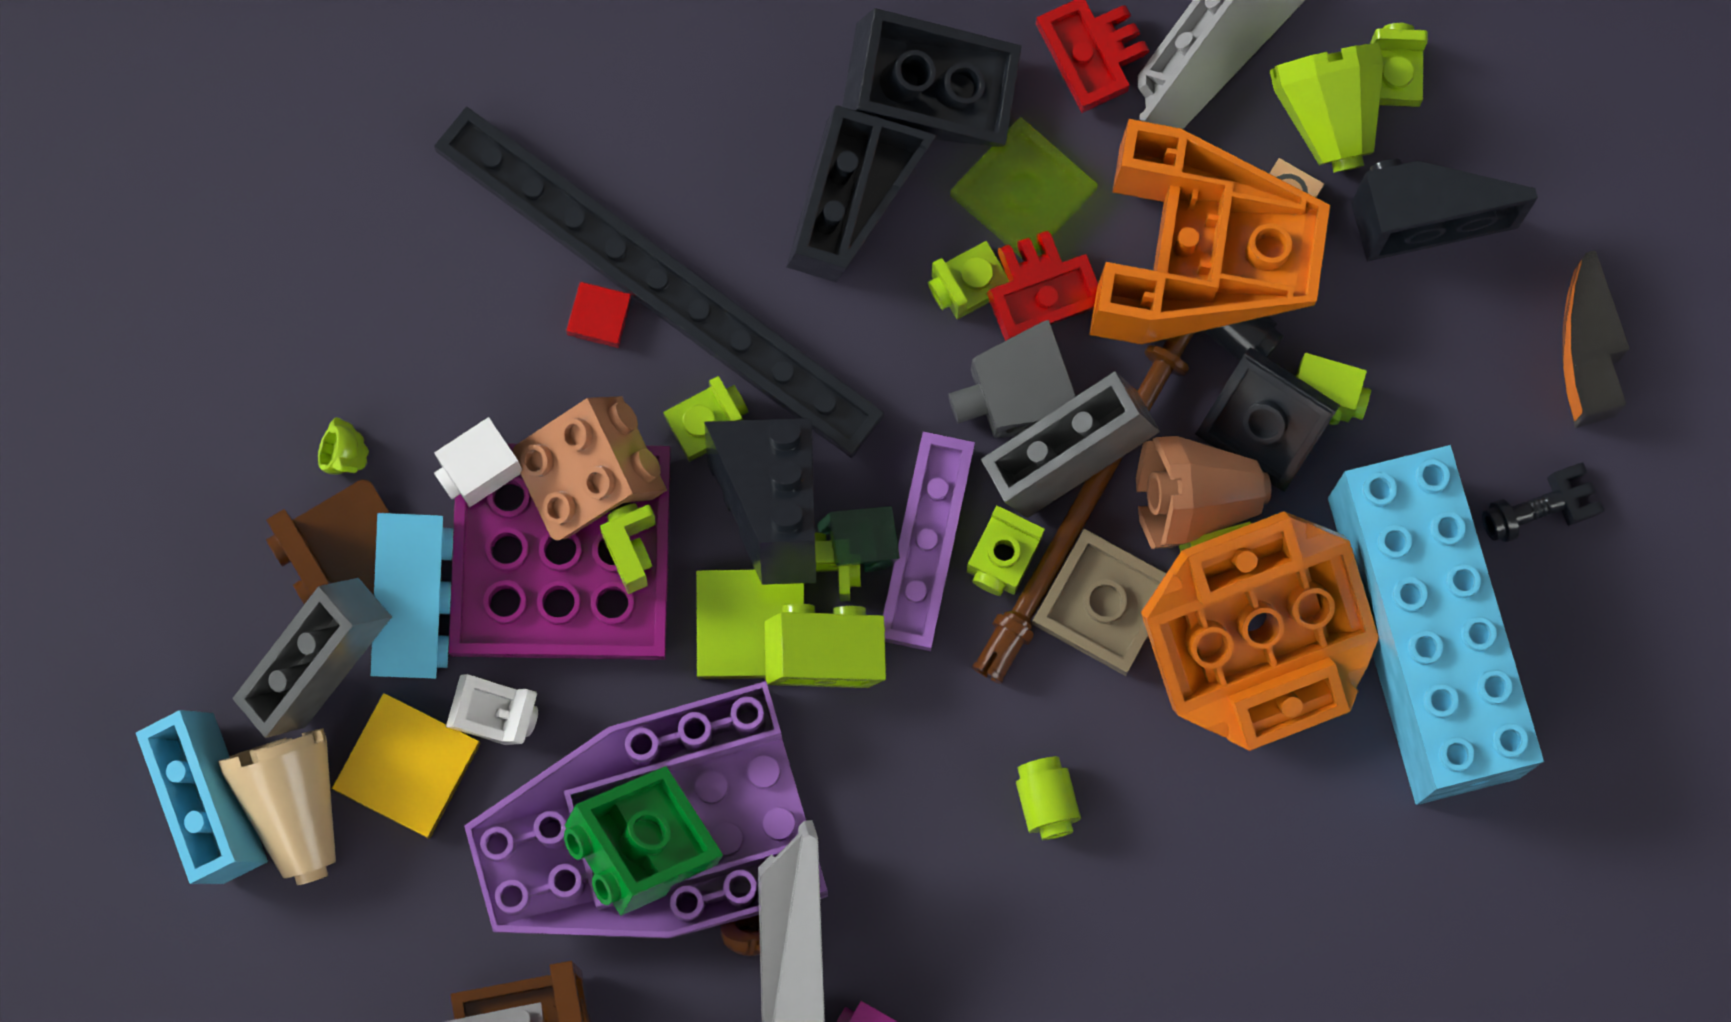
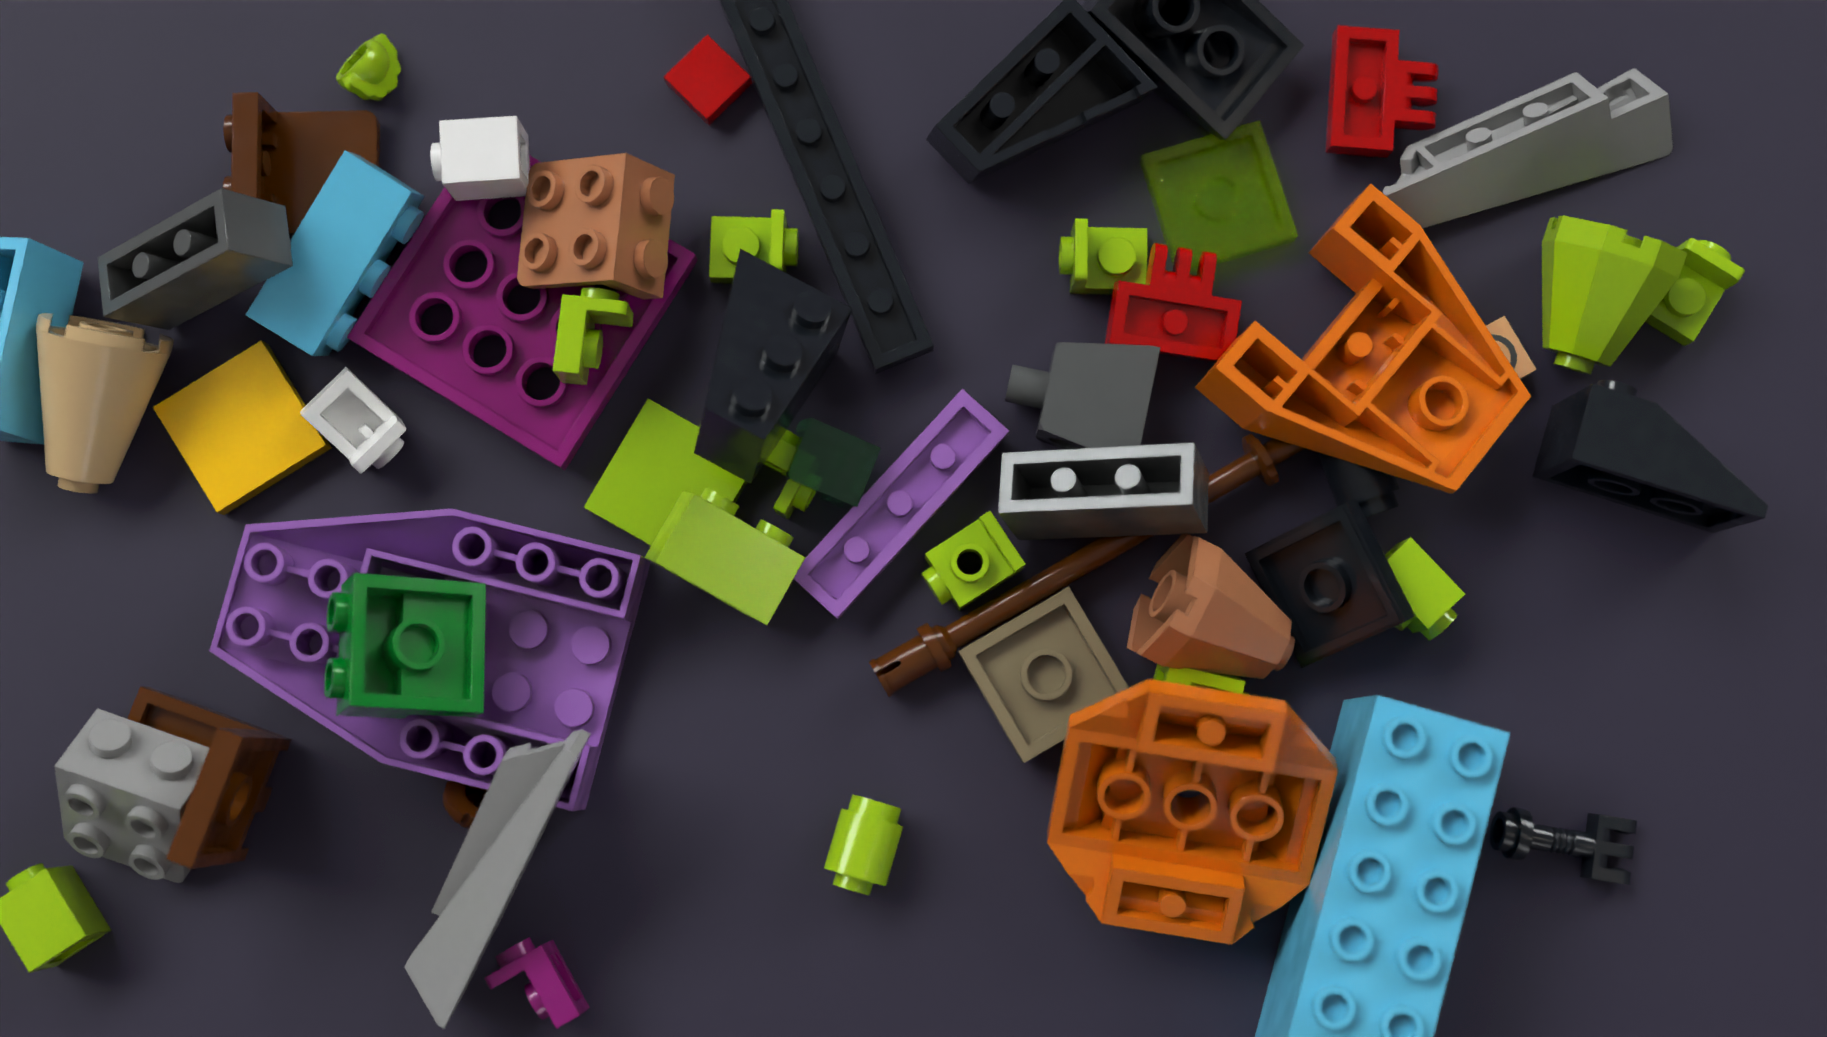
camera: 30 degrees right, 5 degrees up
(1591, 345) = (1722, 699): clear smoke slope -> none

